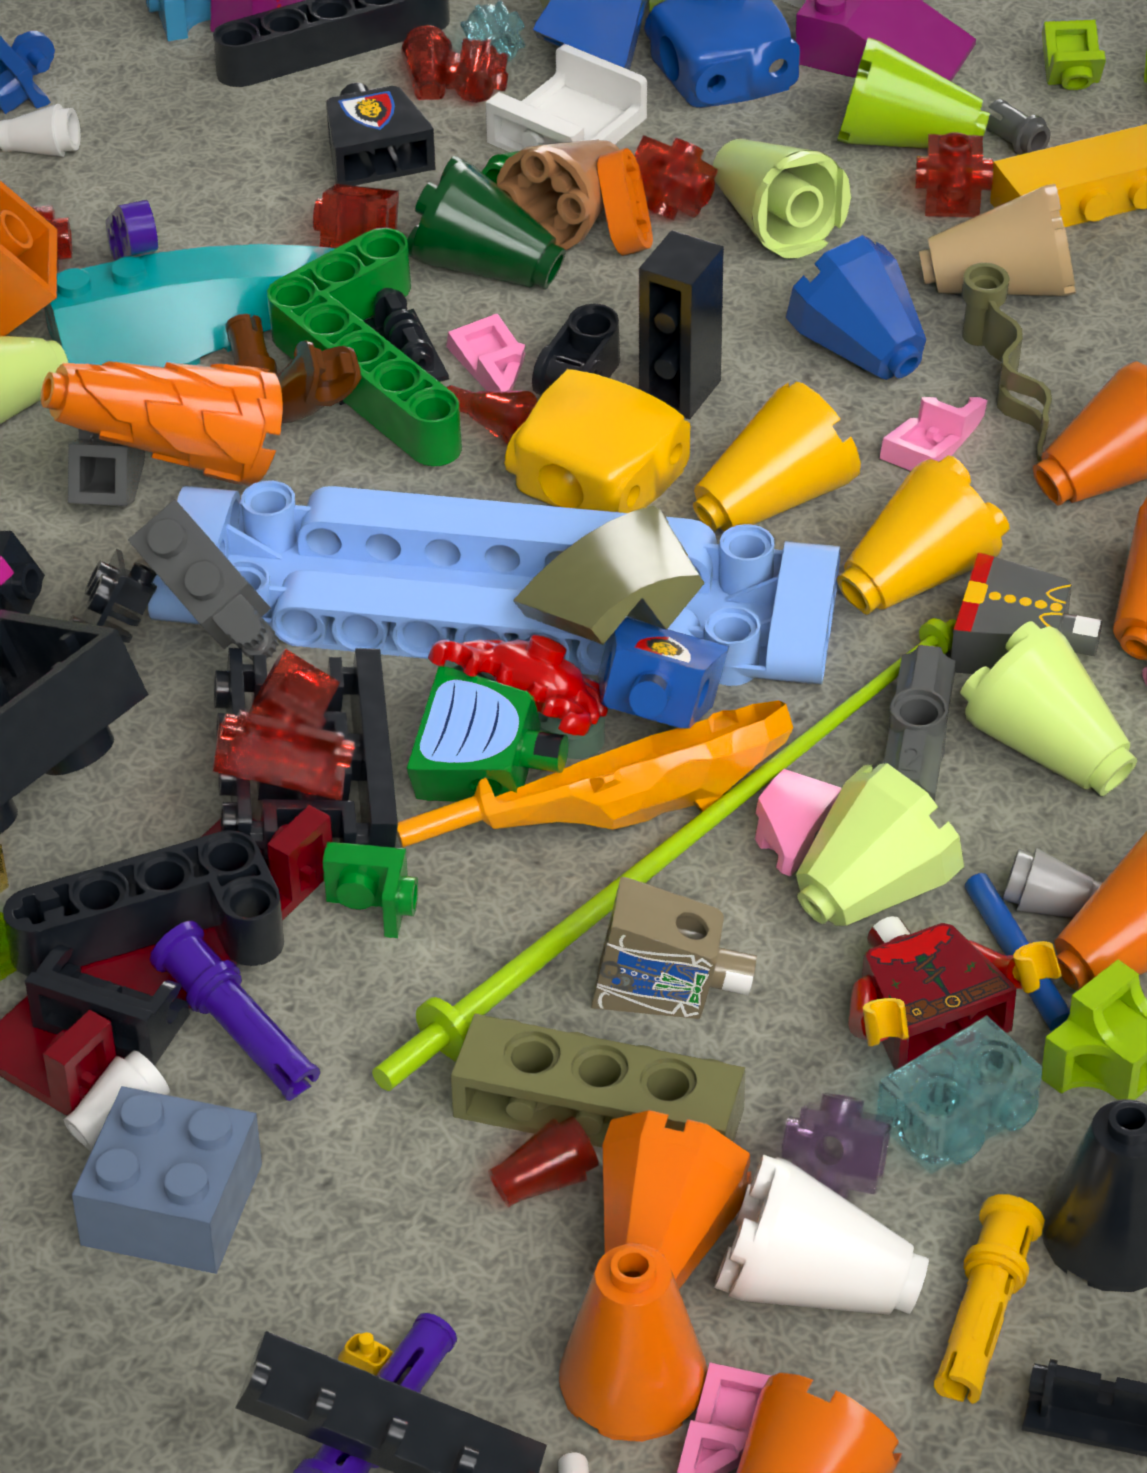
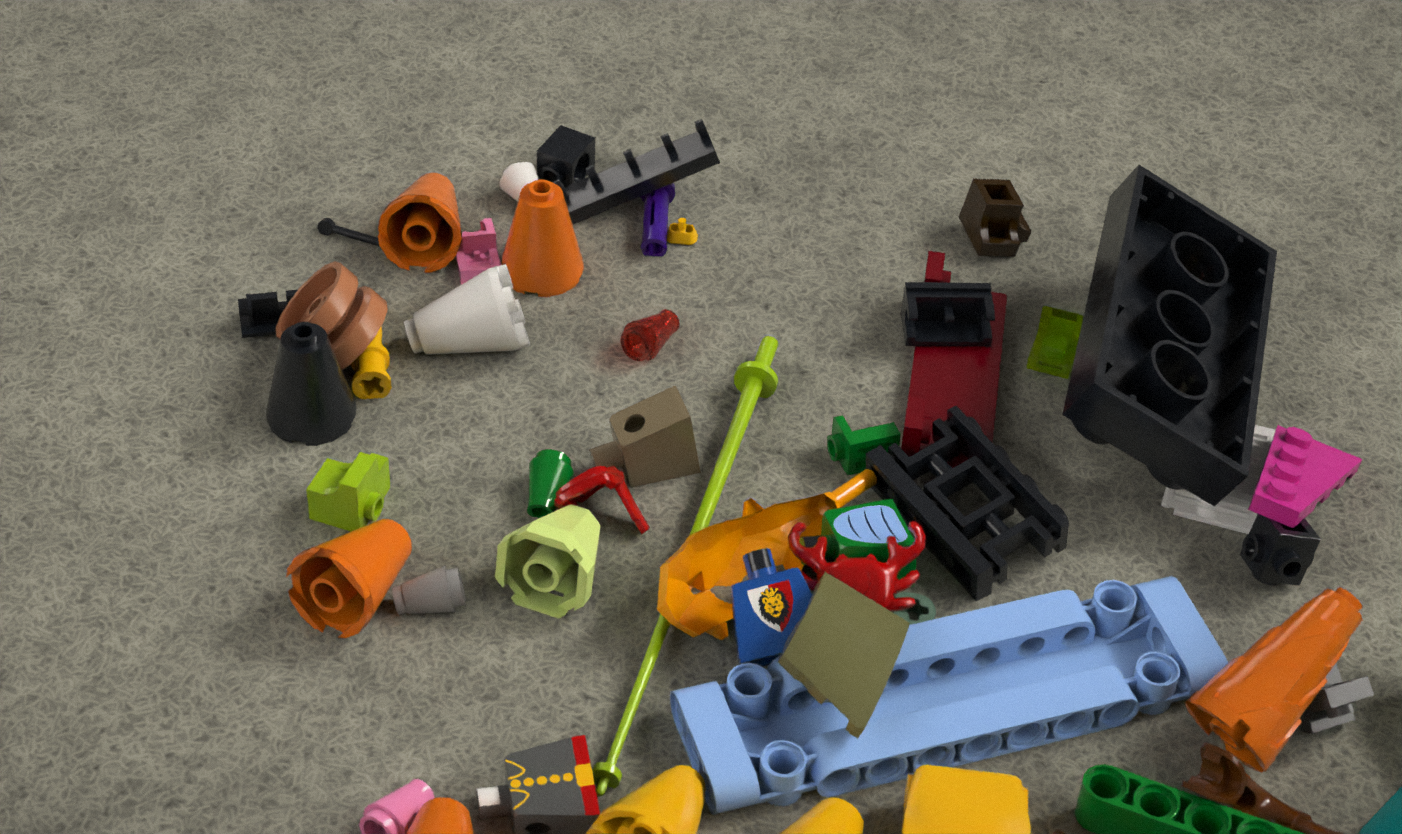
camera: 150 degrees right, 0 degrees up
(91, 1113) = (892, 294): white cone -> none
(115, 584) = (1183, 533): black hinge -> none
(138, 900) = (969, 372): black beam -> none
(167, 1179) = (840, 256): sand blue brick -> none
(205, 581) = (1121, 549): dark grey hinge -> none
(216, 989) = (898, 343): dark purple pin -> none
(255, 750) = (962, 443): clear red hinge -> none
(295, 694) = (987, 484): clear red bracket -> none
(531, 1073) = (636, 369): olive brick -> none
(670, 1187) = (568, 316): orange cone -> none
(746, 907) = (594, 479): none -> red piece
(791, 814) = (631, 591): bright pink slope -> none
(823, 984) = (546, 476): none -> green cone
(863, 1138) = (470, 377): clear purple brick -> none
(920, 716) = (577, 672): dark grey piece -> none
(937, 984) = (474, 486): torso -> none
(960, 1095) = (431, 435): clear light blue brick -> none
(1010, 938) = (439, 557): blue bar -> none
(1049, 1272) = (338, 306): none -> nougat wheel
(1050, 710) = (487, 704): yellowish green cone -> none

